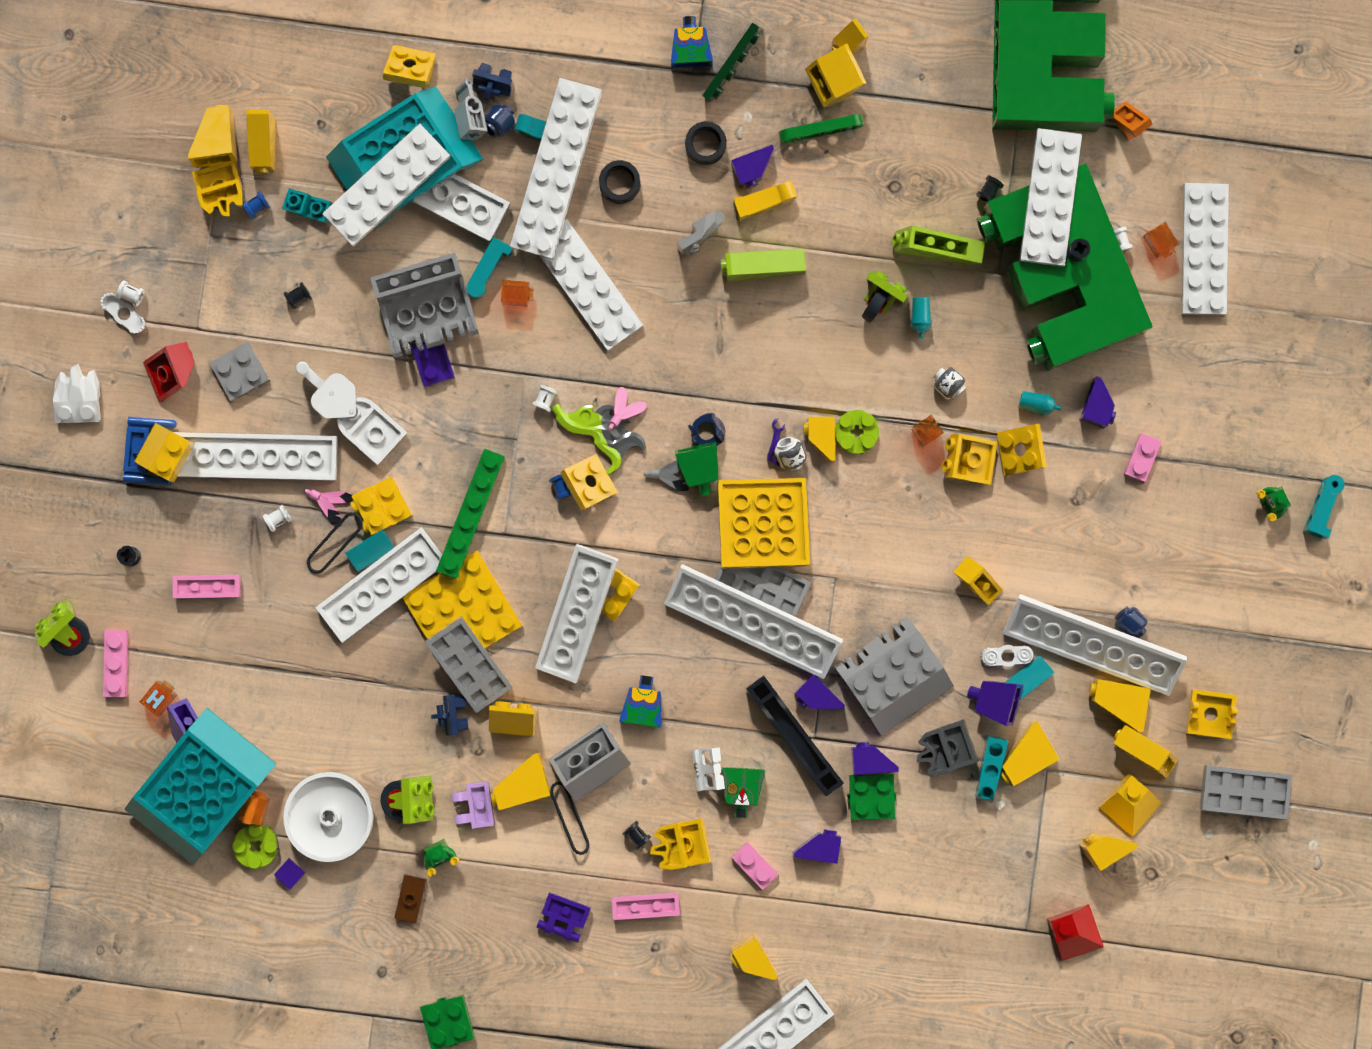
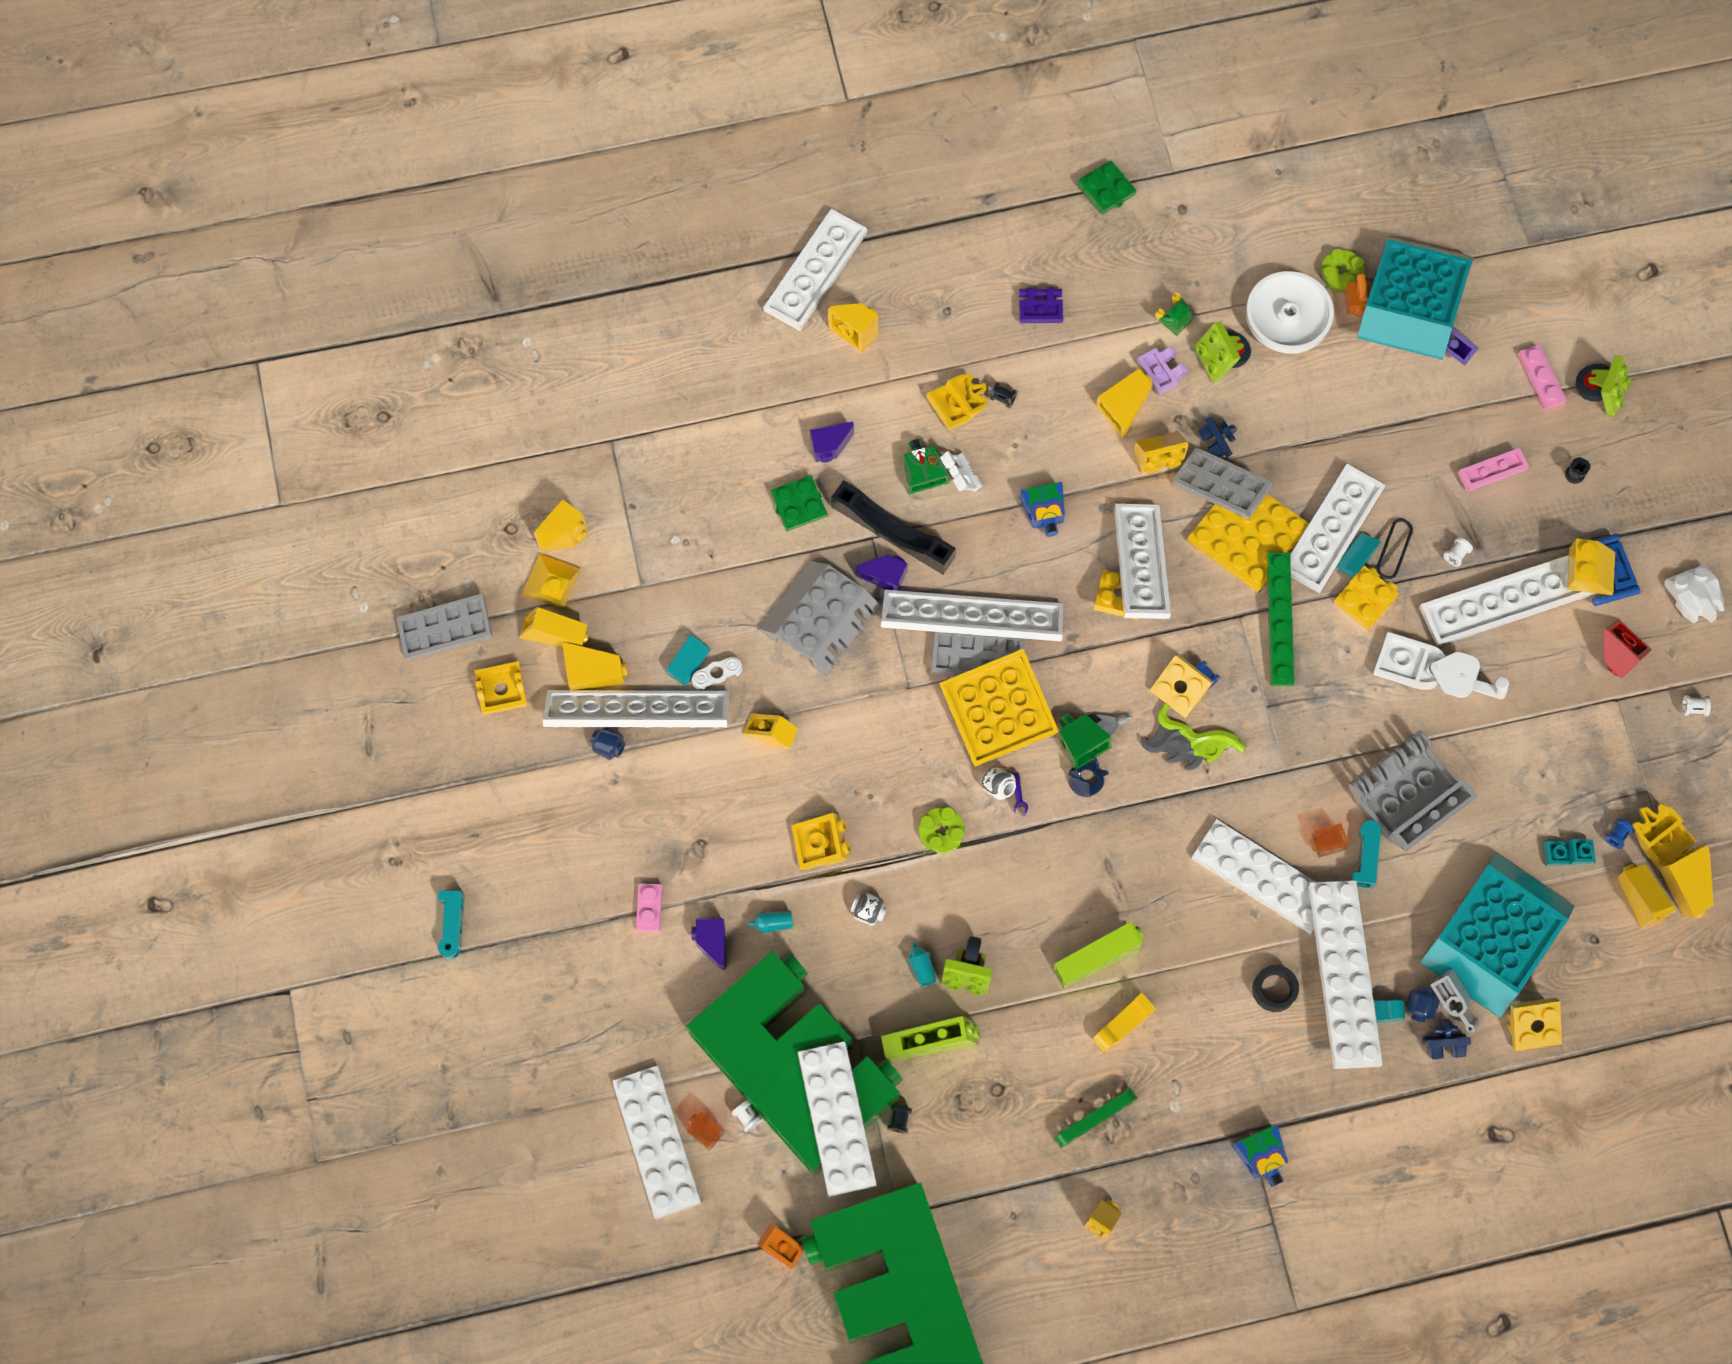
camera: 160 degrees right, 15 degrees down
(134, 323) = (1678, 682): white piece -> none
(158, 697) = (1489, 359): clear orange brick -> none
(239, 371) = (1557, 673): light grey plate -> none
(289, 873) = (1301, 258): dark purple tile -> none
(297, 295) = (1537, 762): black bush -> none
(325, 502) = (1419, 585): bright pink piece -> none
(386, 185) = (1503, 890): white plate -> none
(410, 898) = (1184, 274): reddish brown plate -> none
(433, 364) = (1375, 744): dark purple plate -> none
(466, 206) = (1414, 908): white plate -> none
(550, 395) = (1255, 759): white bush -> none
(563, 822) = (1077, 383): black piece -> none
(589, 762) = (1073, 441): light grey slope -> none
(622, 412) = (1176, 765): bright pink piece -> none
(645, 906) = (970, 339): bright pink plate -> none
(702, 230) = (1175, 961): light grey plate -> none
(705, 126) = (1221, 1050): black tyre -> none
(737, 56) = (1212, 1156): dark green wing -> none
(752, 166) = (1150, 1051): dark purple slope -> none
(755, 865) = (884, 408): bright pink plate -> none
(821, 435) = (974, 812): yellow slope -> none
(835, 76) = (1103, 1173): yellow slope -> none
(869, 760) = (811, 533): dark purple slope -> none
(927, 430) = (873, 853): clear orange brick -> none
(947, 748) = (743, 568): dark grey plate -> none
(991, 767) = (696, 567): teal leg -> none
(997, 700) = (712, 624): dark purple torso -> none
(1028, 756) = (664, 588): yellow slope -> none
(1034, 455) = (769, 879): yellow piece -> none
(1075, 932) = (566, 452): red slope -> none
(1076, 256) = (791, 1064): black bush -> none
(1275, 501) = (501, 910): green piece -> none

